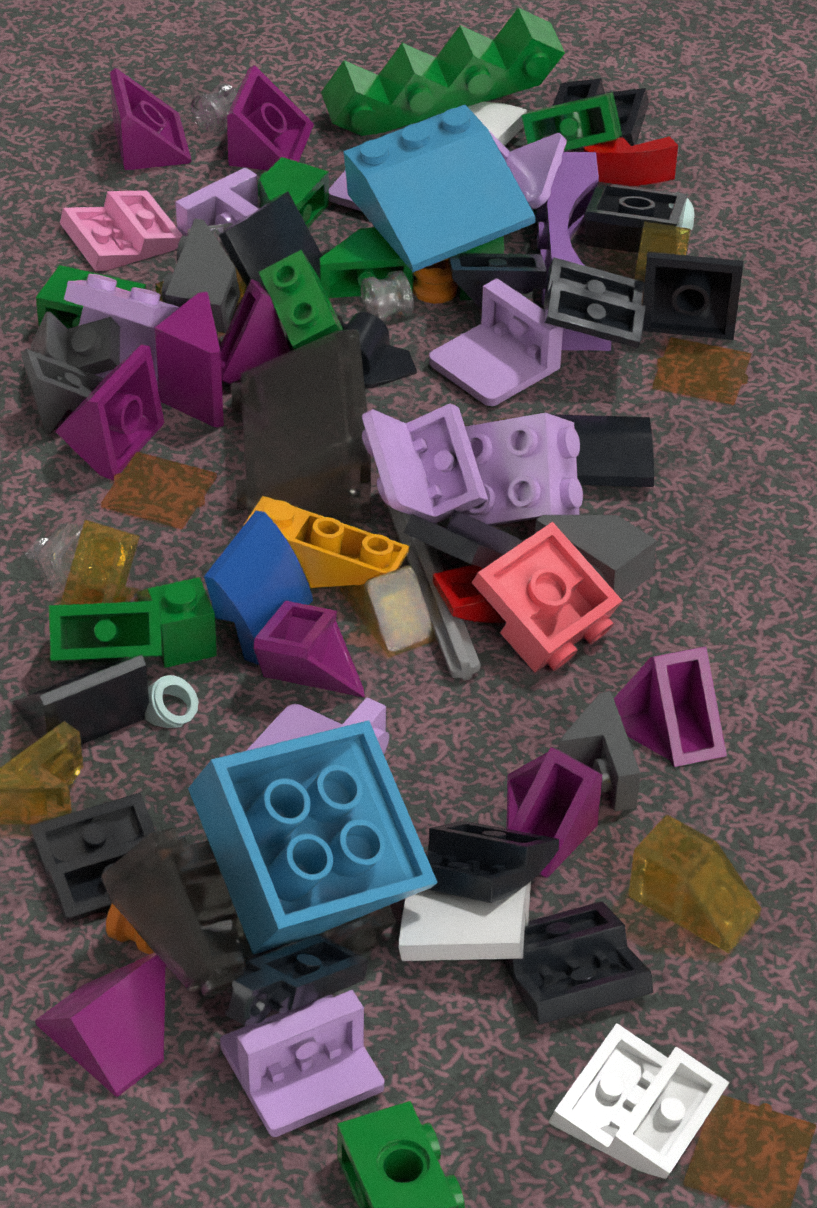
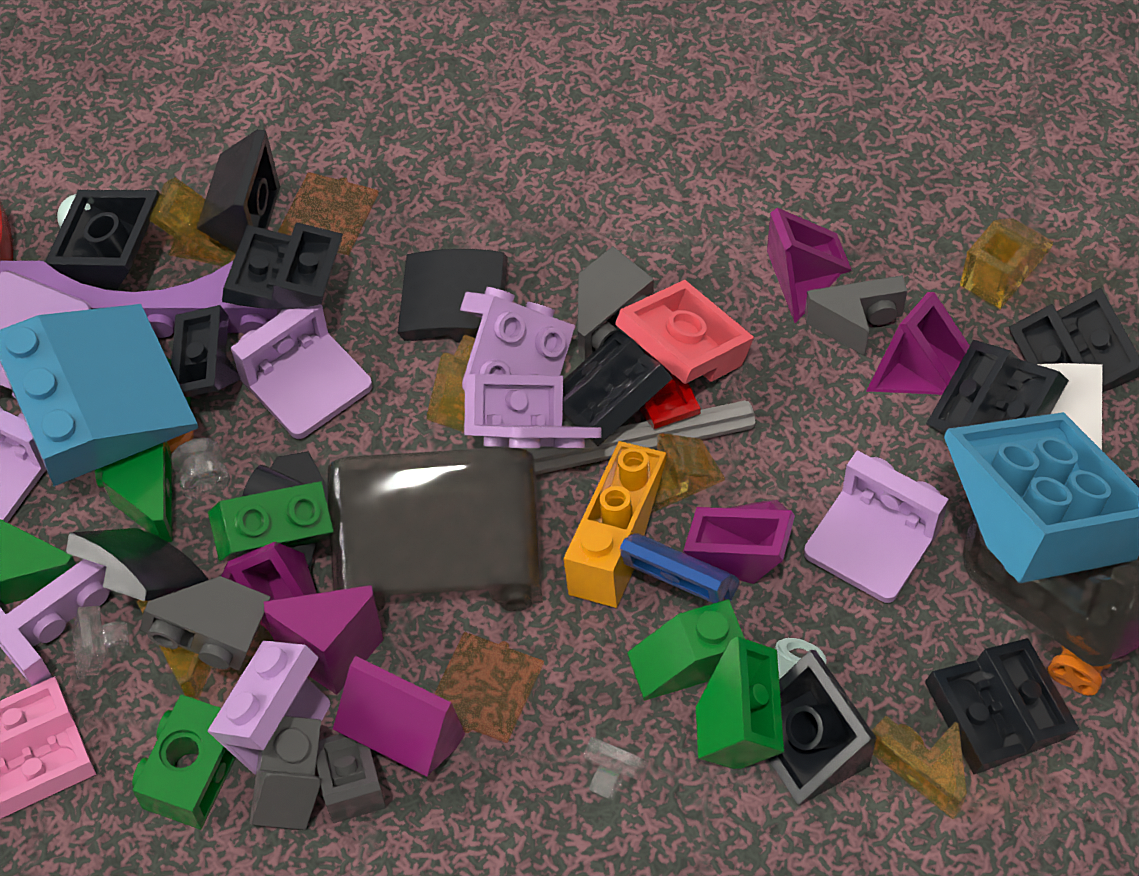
camera: 85 degrees left, 15 degrees up
(101, 566) = (650, 722): clear yellow slope -> none

